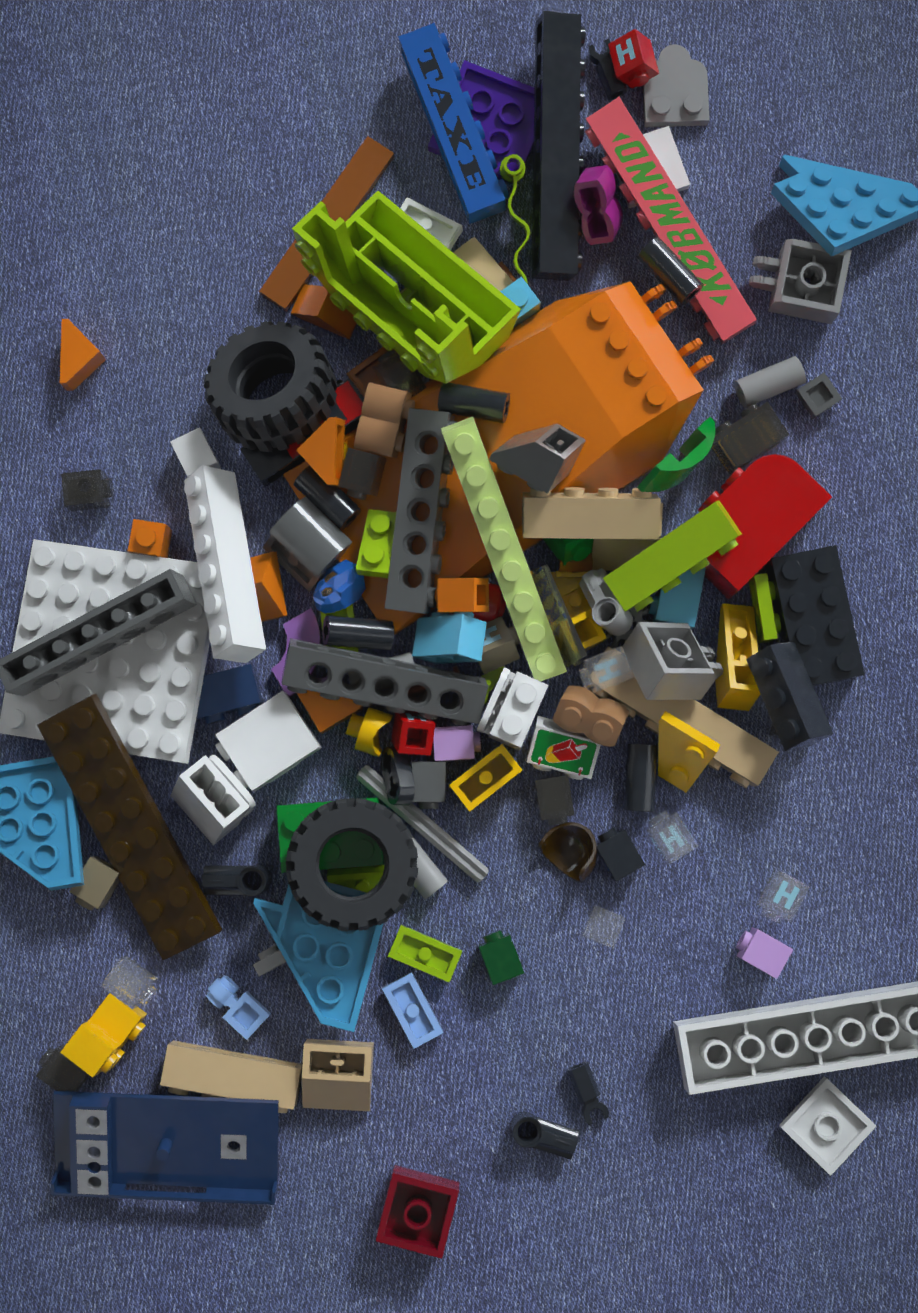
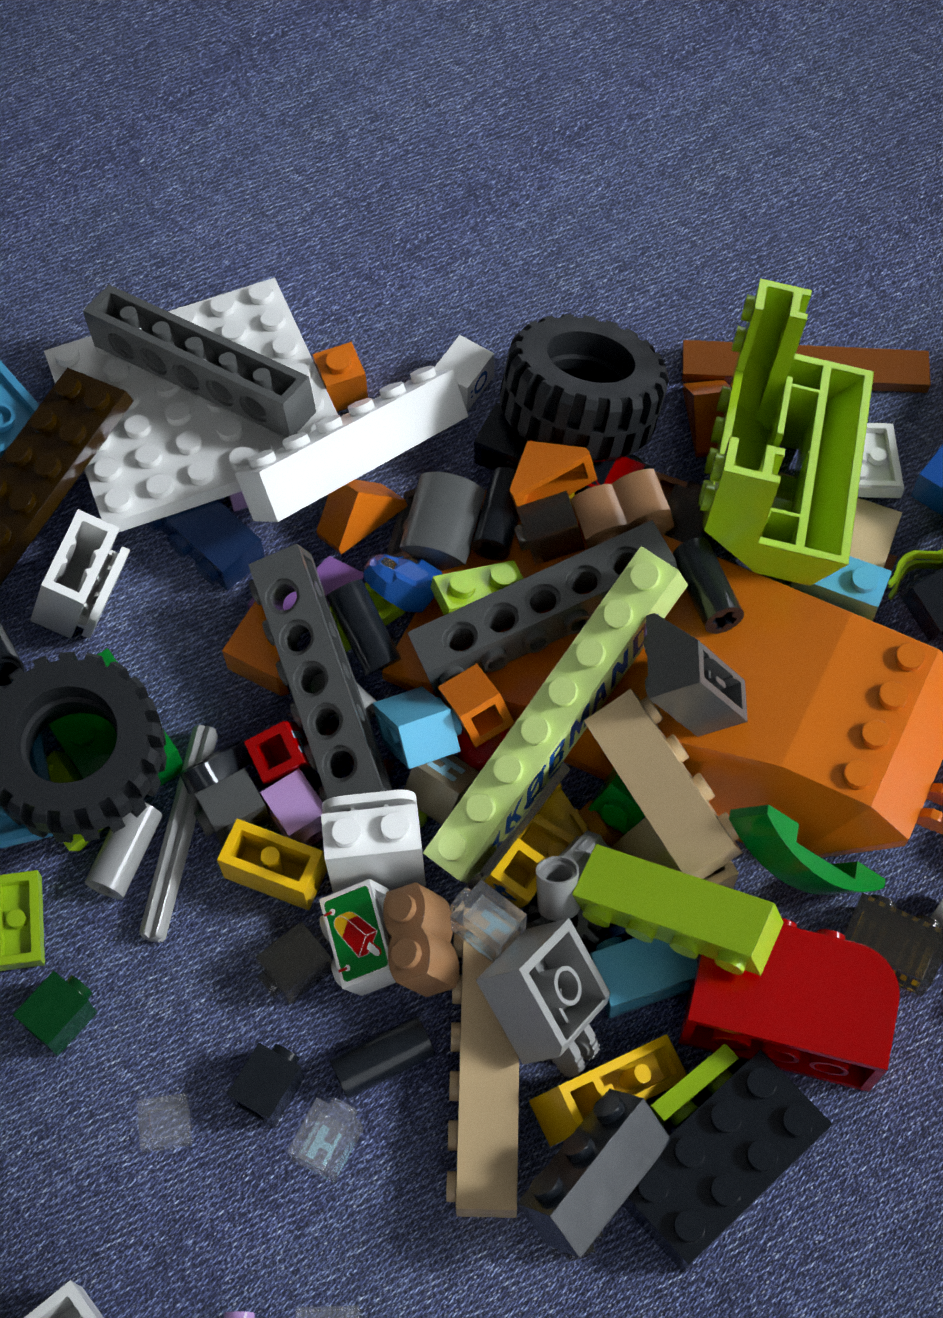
camera: 60 degrees right, 20 degrees down
(77, 357) = (493, 215): orange slope -> none
(86, 490) = (357, 294): clear smoke brick -> none
(267, 742) = (180, 606): white brick -> none
(367, 730) = (255, 706): yellow piece -> none
(570, 849) = (240, 1017): dark brown helmet -> none
(682, 752) = (443, 1083): yellow wing -> none

